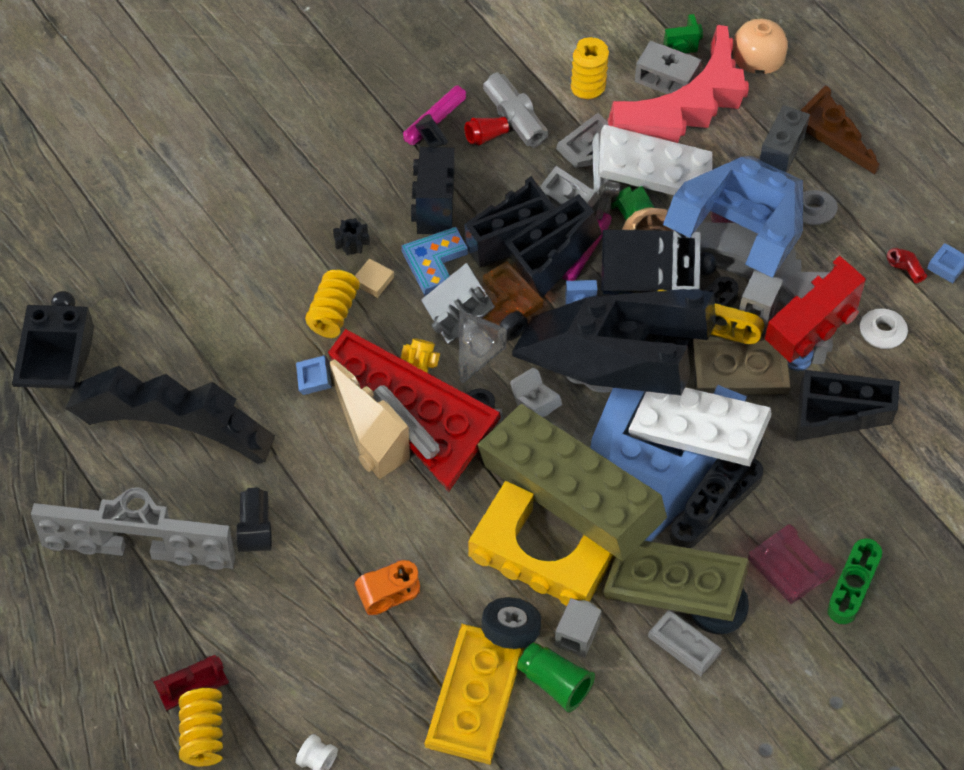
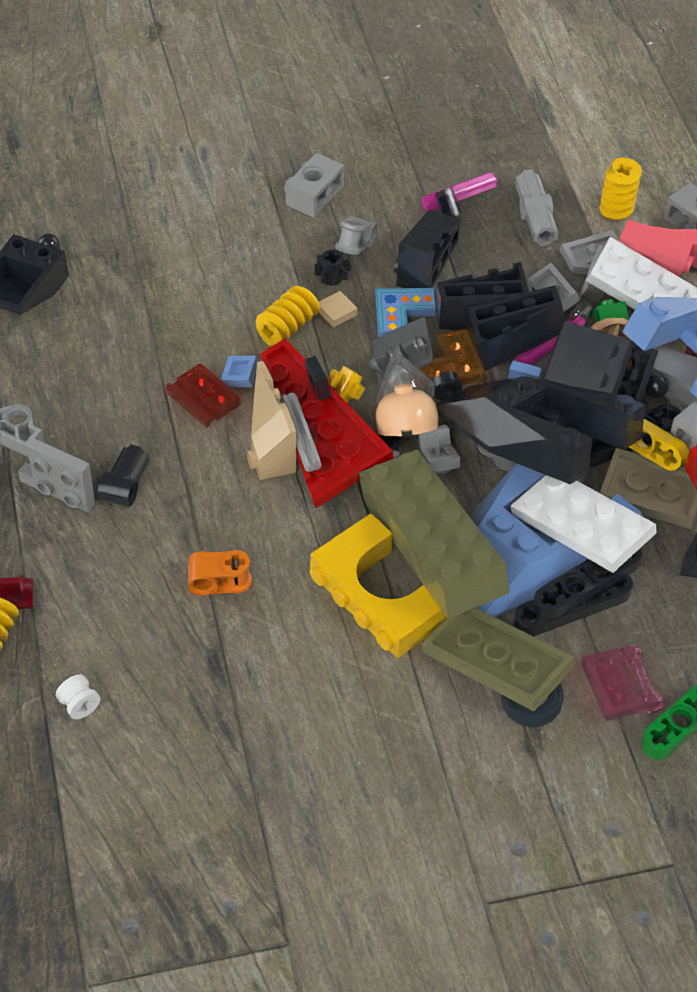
camera: 20 degrees right, 5 degrees down
(163, 400) = (86, 343): black arch -> none
(289, 411) = (203, 395): none -> clear red plate
(293, 152) = (314, 184): none -> light grey brick
(359, 195) = (356, 235): none -> light grey piece
(400, 363) = (317, 378): none -> black tile
(473, 697) = (256, 696): yellow tile -> none
(485, 129) = (499, 215): red cone -> none
(492, 368) = (406, 411): none -> light nougat cylinder
(523, 625) = (318, 642): black bush -> none
(556, 676) = (339, 705): green plant -> none
(578, 627) = (381, 668): light grey brick -> none
(684, 643) = (481, 719): light grey plate -> none

